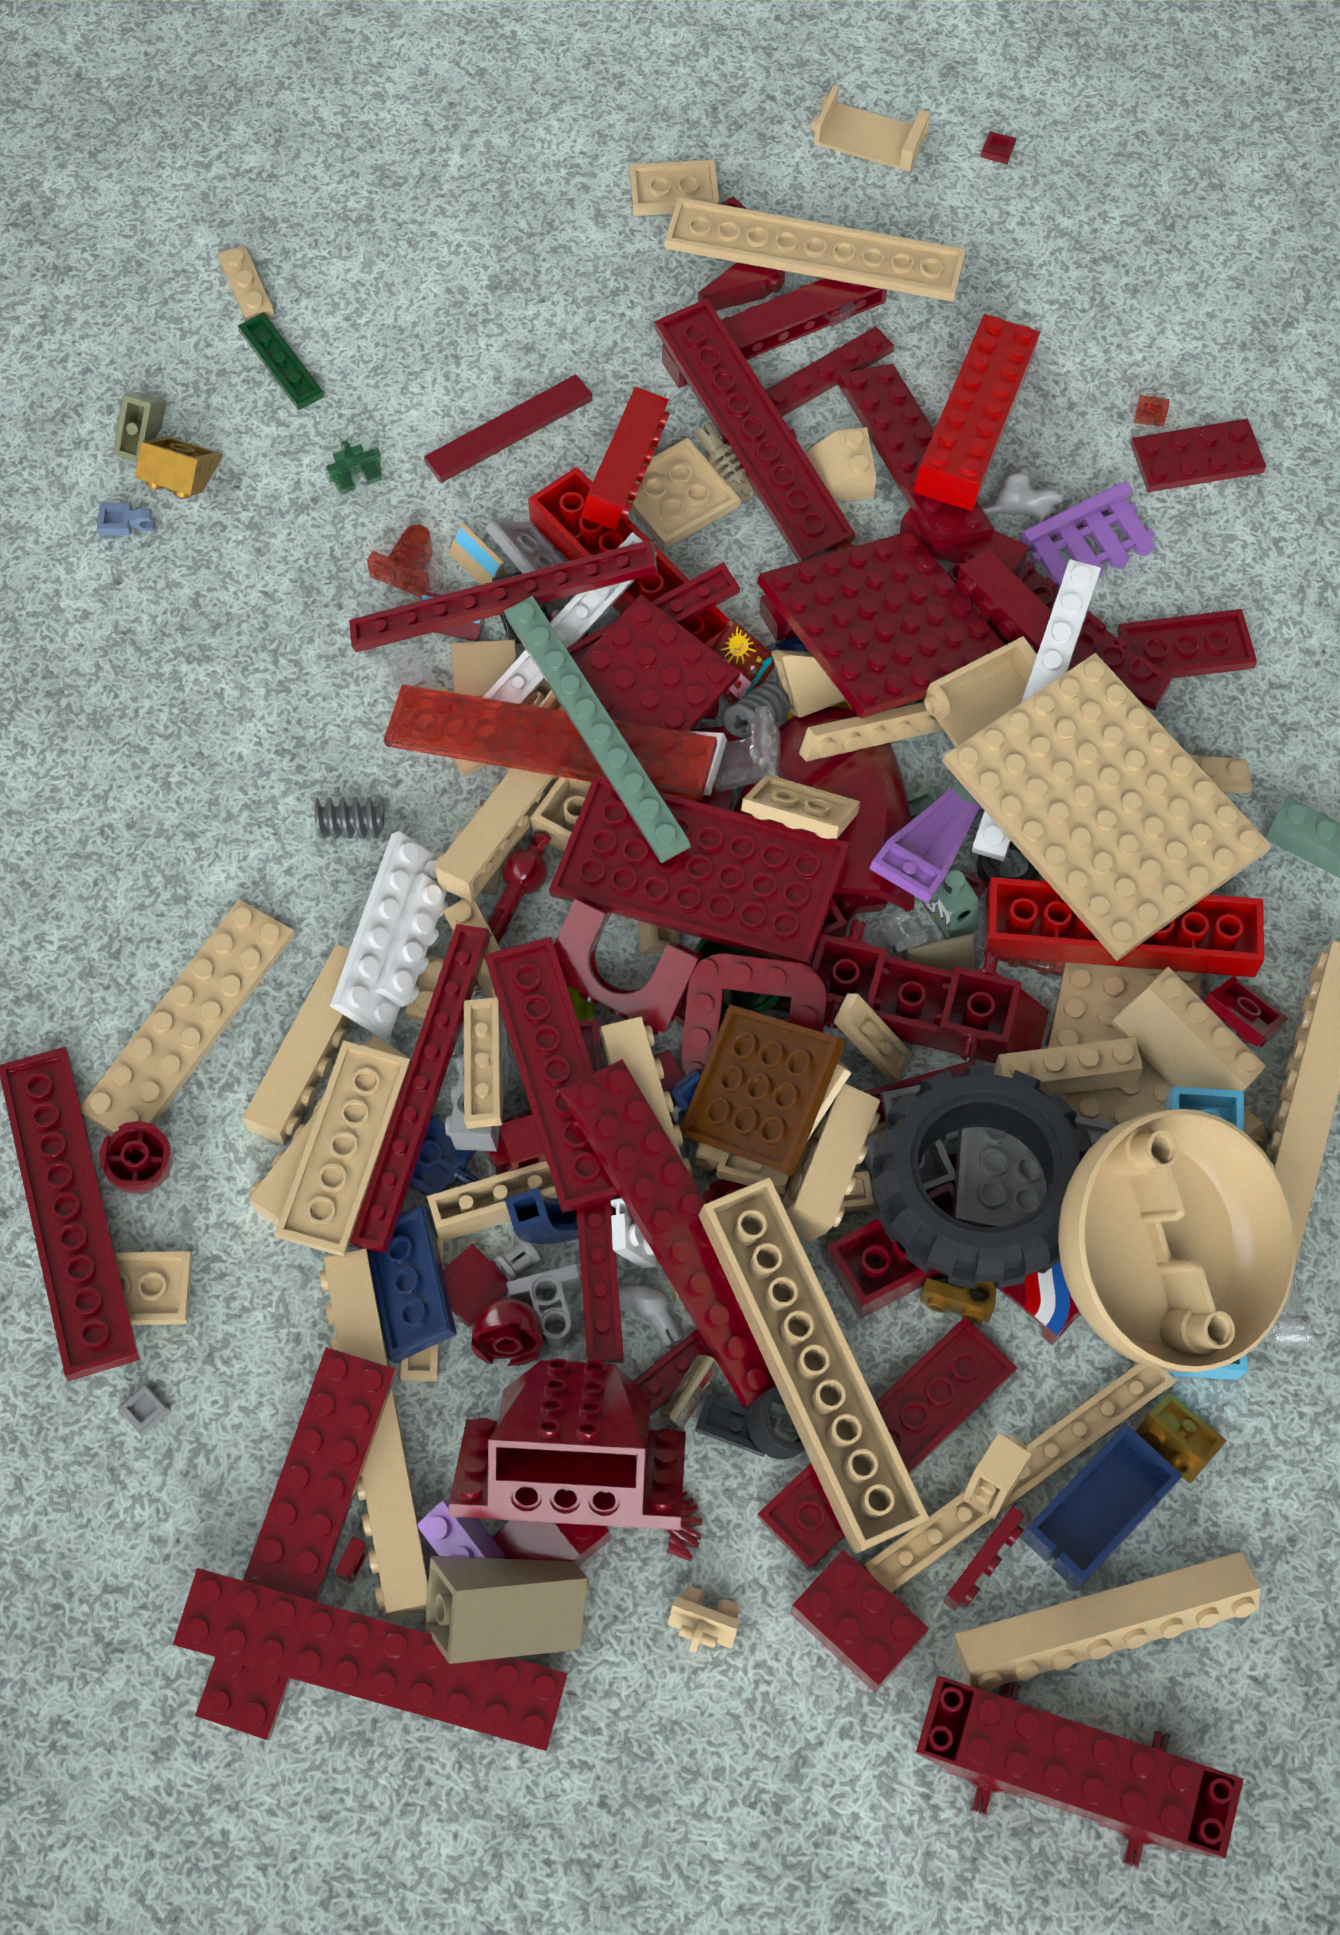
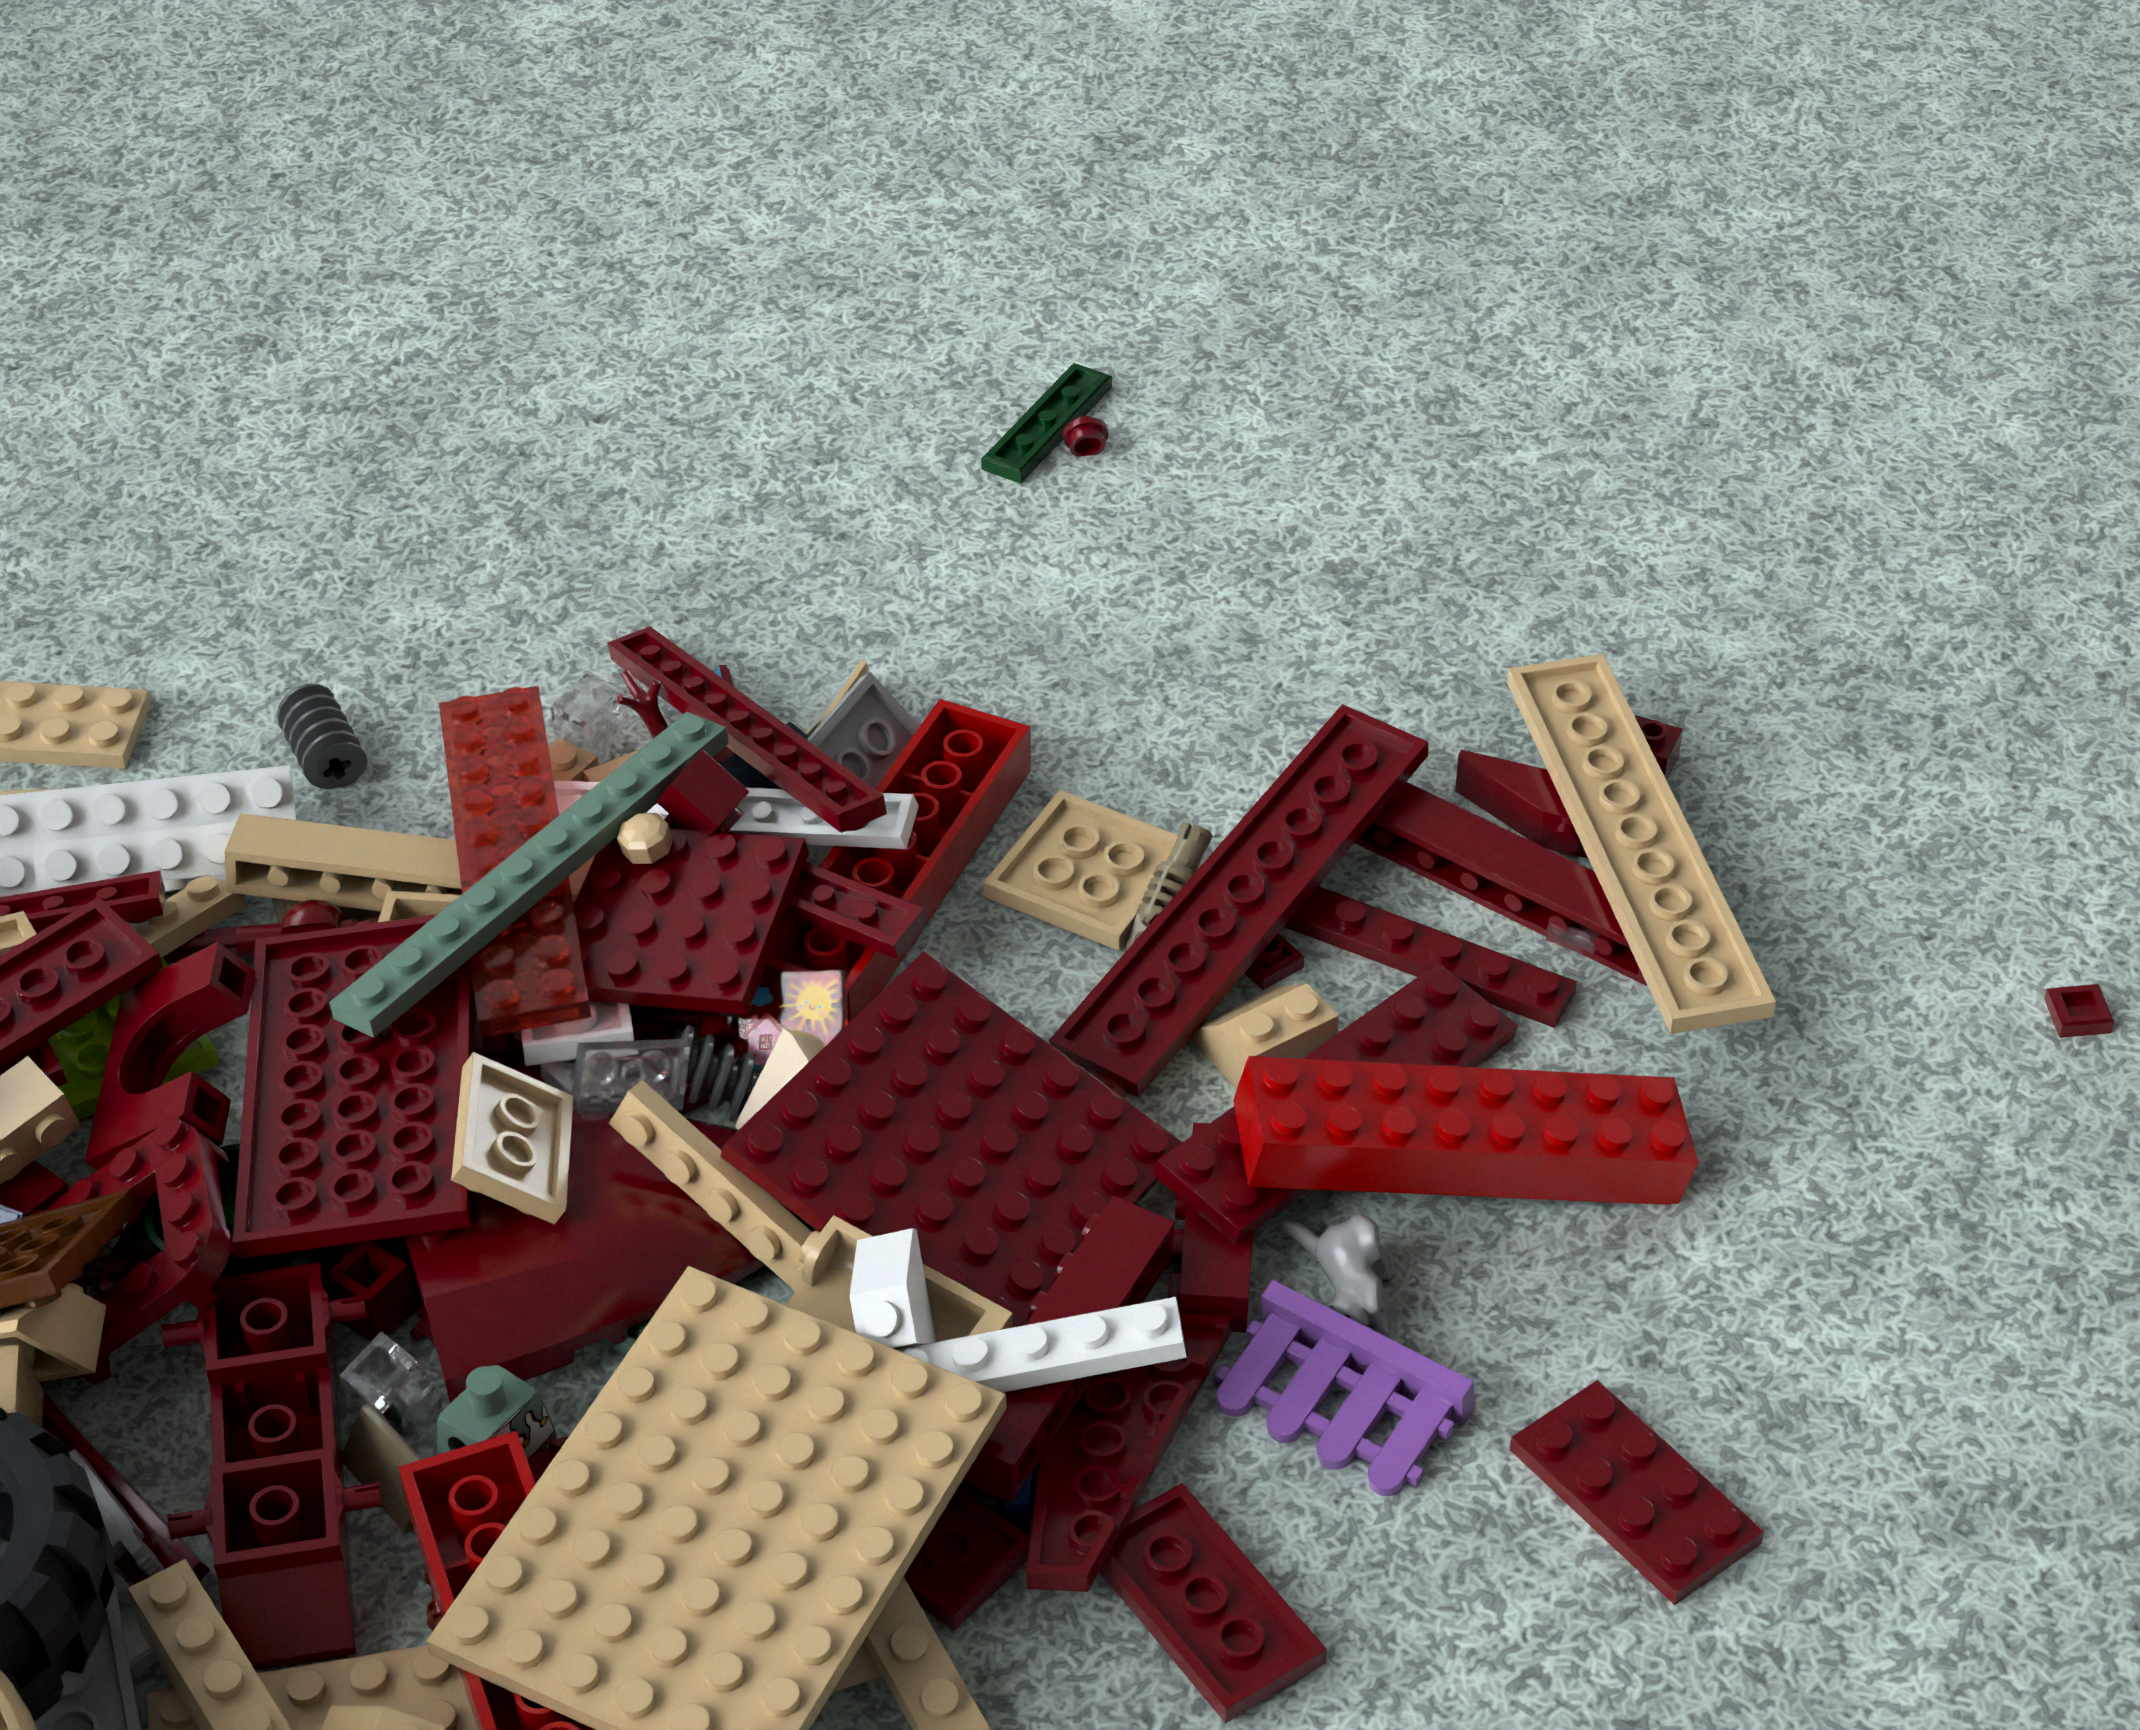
camera: 65 degrees right, 20 degrees down
(120, 517) = (689, 377): sand blue plate -> none
(138, 421) = (846, 336): olive slope -> none
(176, 465) = (804, 389): pearl gold slope -> none
(245, 283) = (1152, 347): tan plate -> none
(313, 346) = (1086, 436): none -> dark red plate
(353, 461) = (914, 533): clear green hips -> none
(407, 556) = (785, 644): clear red tile -> none
(427, 644) = (644, 703): none -> dark red bar
(508, 428) = (1091, 666): dark red tile -> none
(582, 627) = (704, 796): none -> dark red brick
(596, 668) = (645, 838): none -> tan tile
(625, 459) = (1079, 768): red brick -> none
(659, 185) = (1662, 671): tan plate -> none
(868, 133) = (1963, 843): tan panel -> none
(872, 1037) = (173, 1405): tan plate -> none
(926, 847) = (521, 1326): medium lavender plate -> none
(993, 679) = (891, 1291): none -> white slope
(1151, 410) = (1671, 1383): clear red plate -> none

